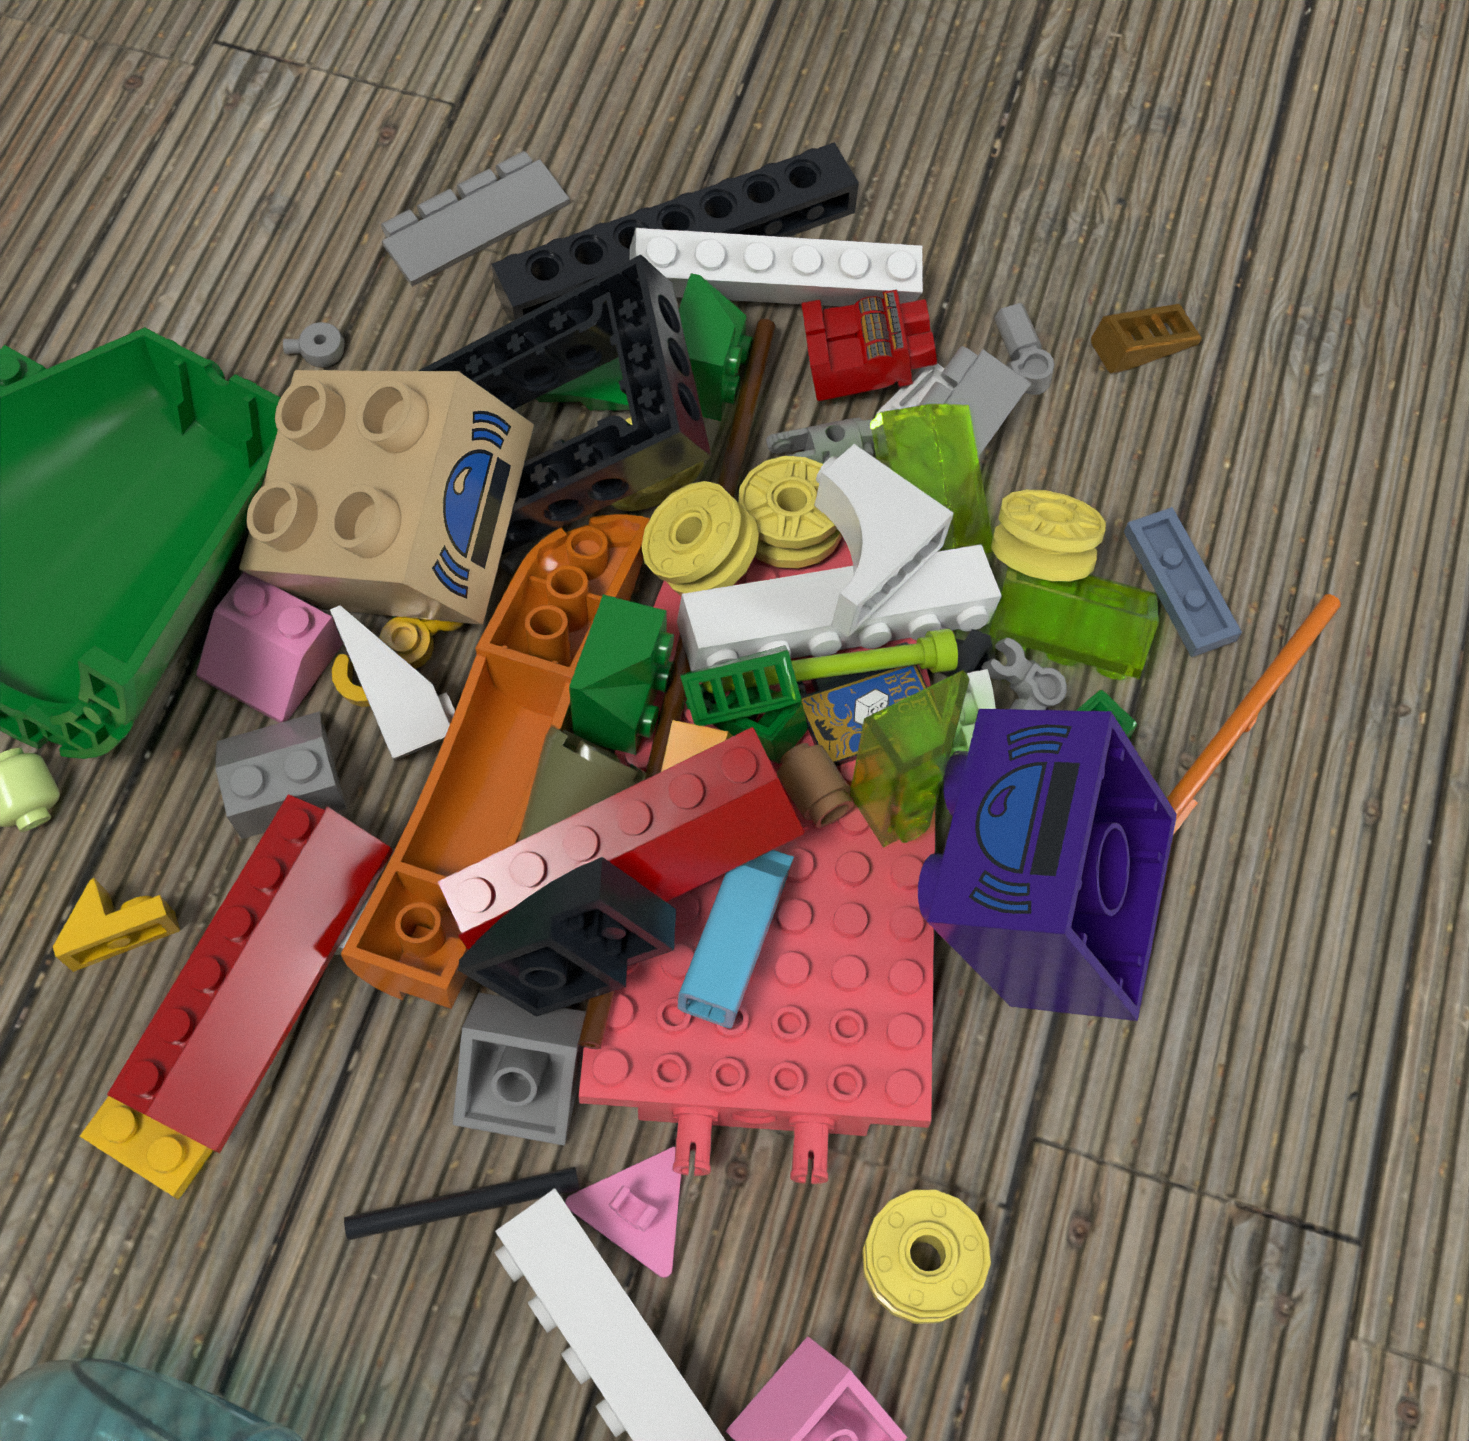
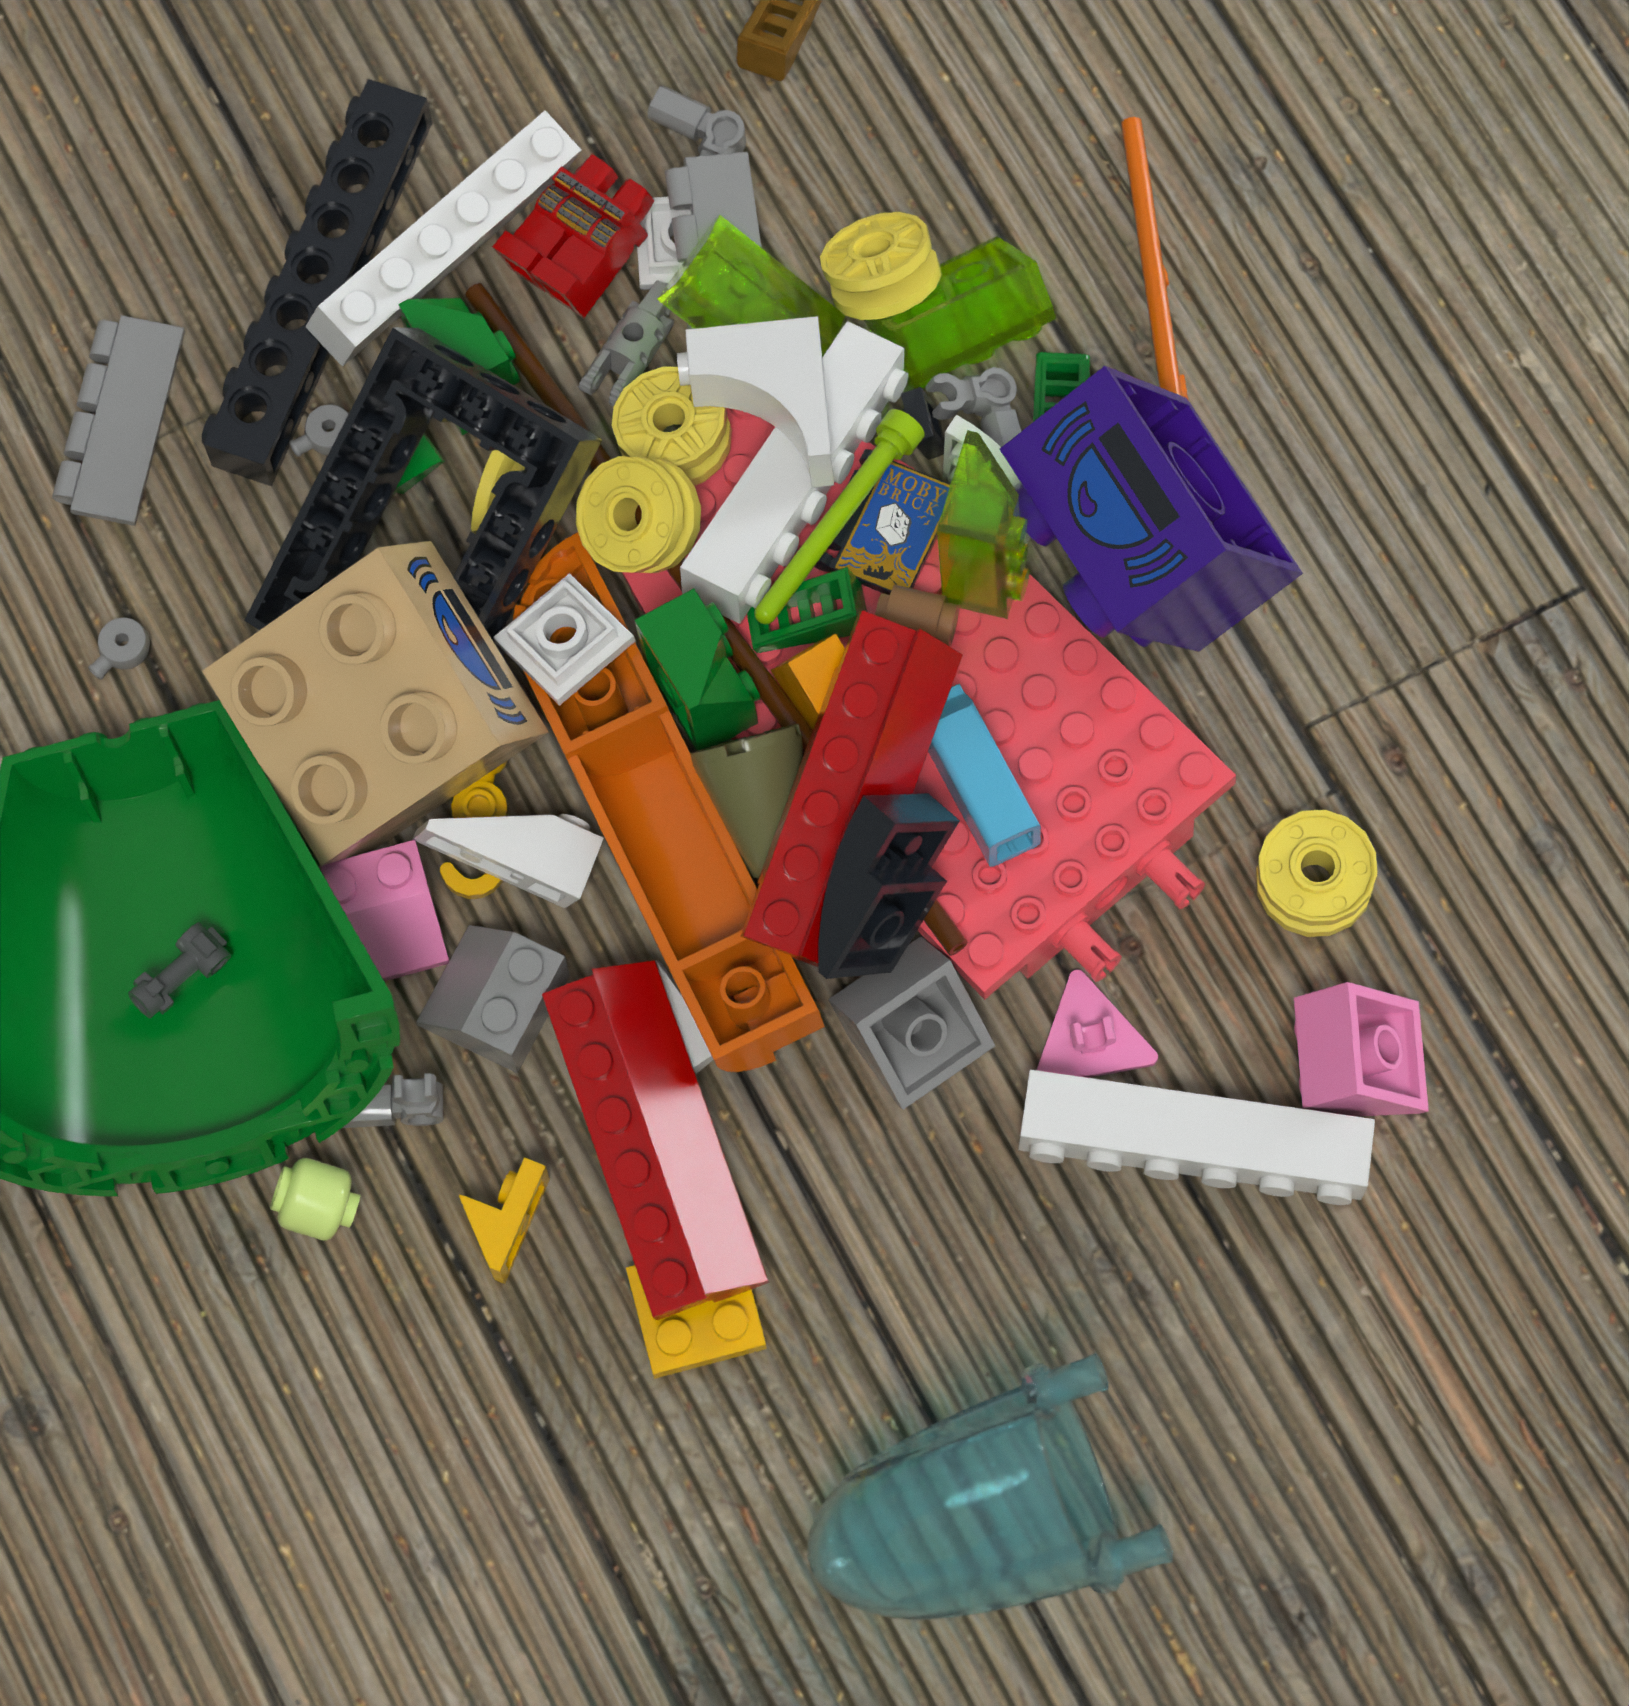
camera: 40 degrees left, 5 degrees up
(134, 564) = (200, 951): none -> dark grey bar
(139, 780) = (413, 1100): none -> light grey bar
(460, 1203) = (968, 1152): black bar -> none
(571, 592) = (569, 665): none -> white piece
(765, 702) = (812, 606): green slope -> none
(1182, 582) = (1009, 209): sand blue plate -> none

